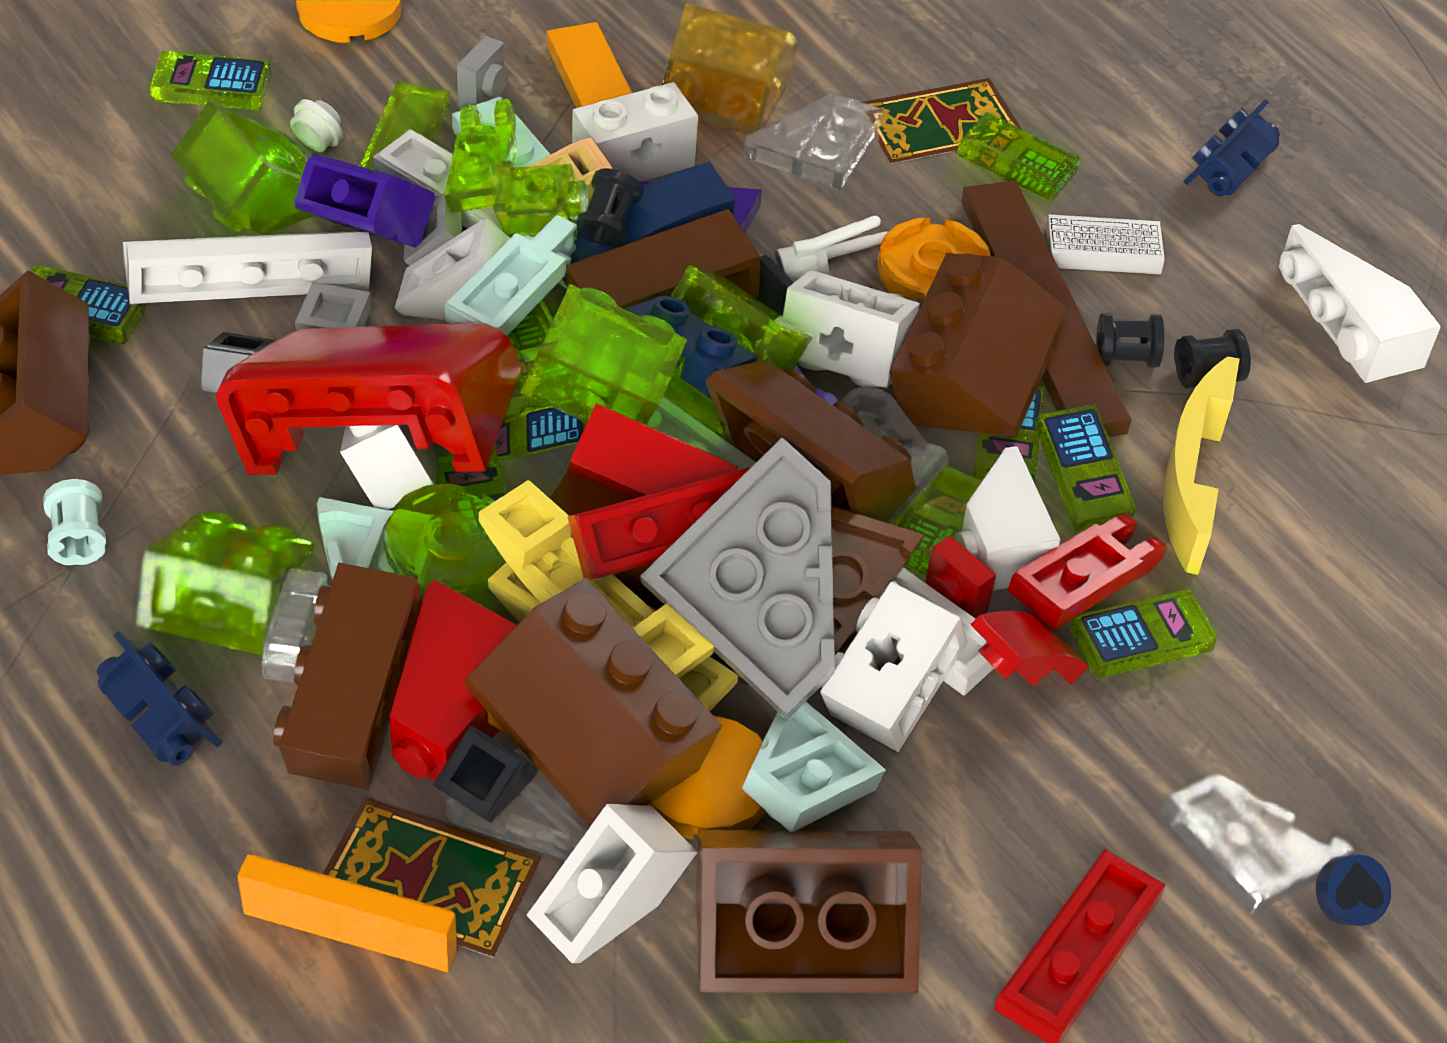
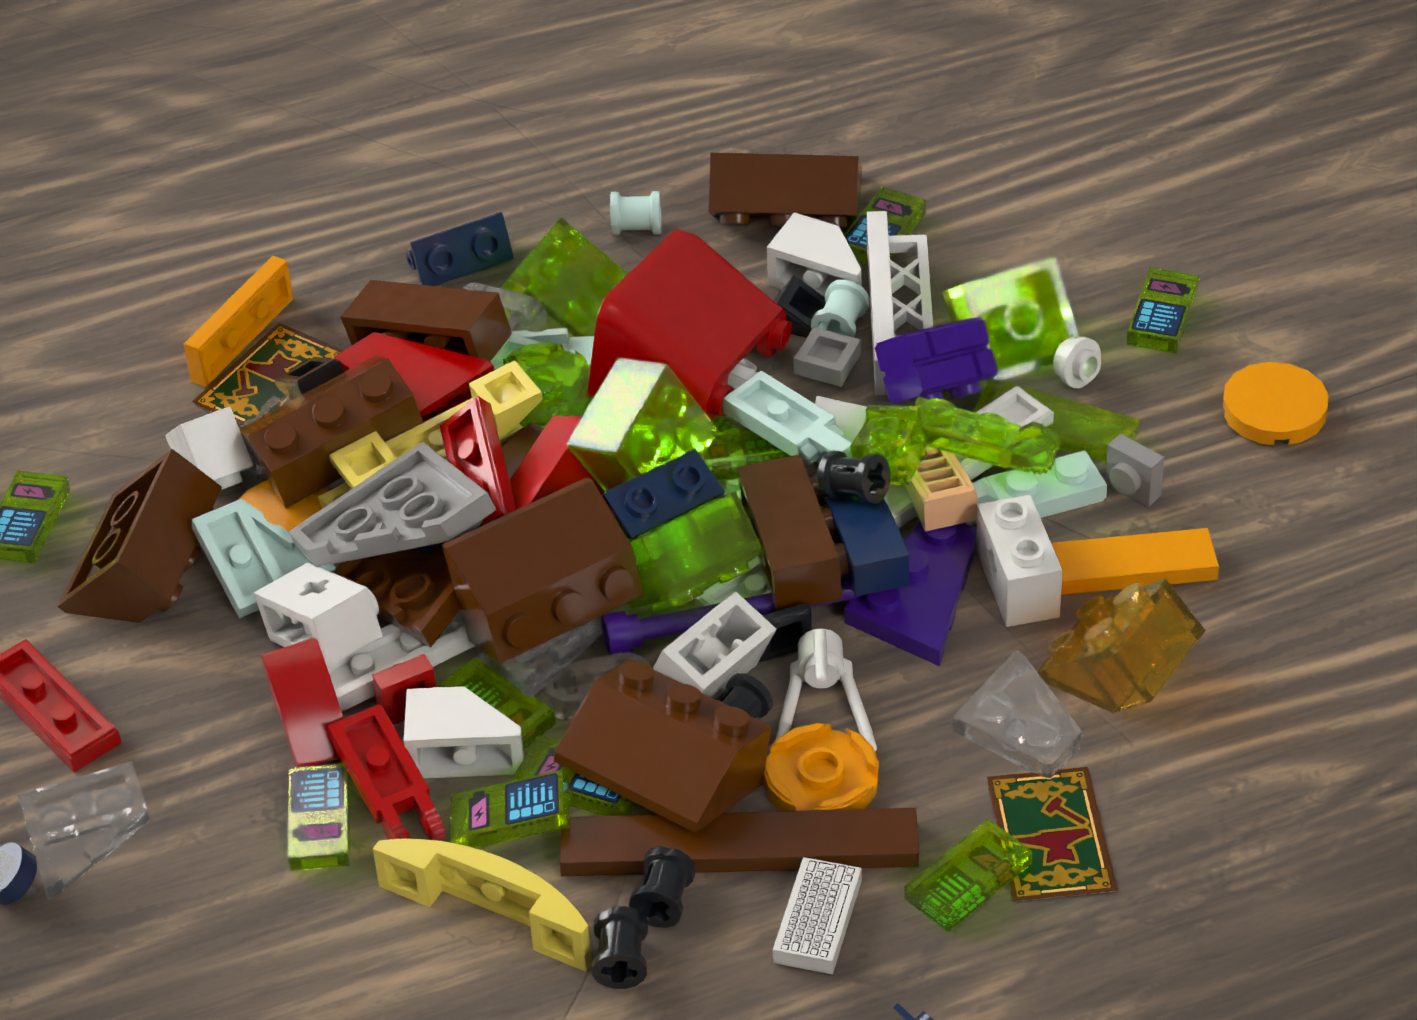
camera: 110 degrees right, 5 degrees down
(163, 337) = (811, 252): none -> white slope
(258, 309) = (843, 306): none -> light aqua bush

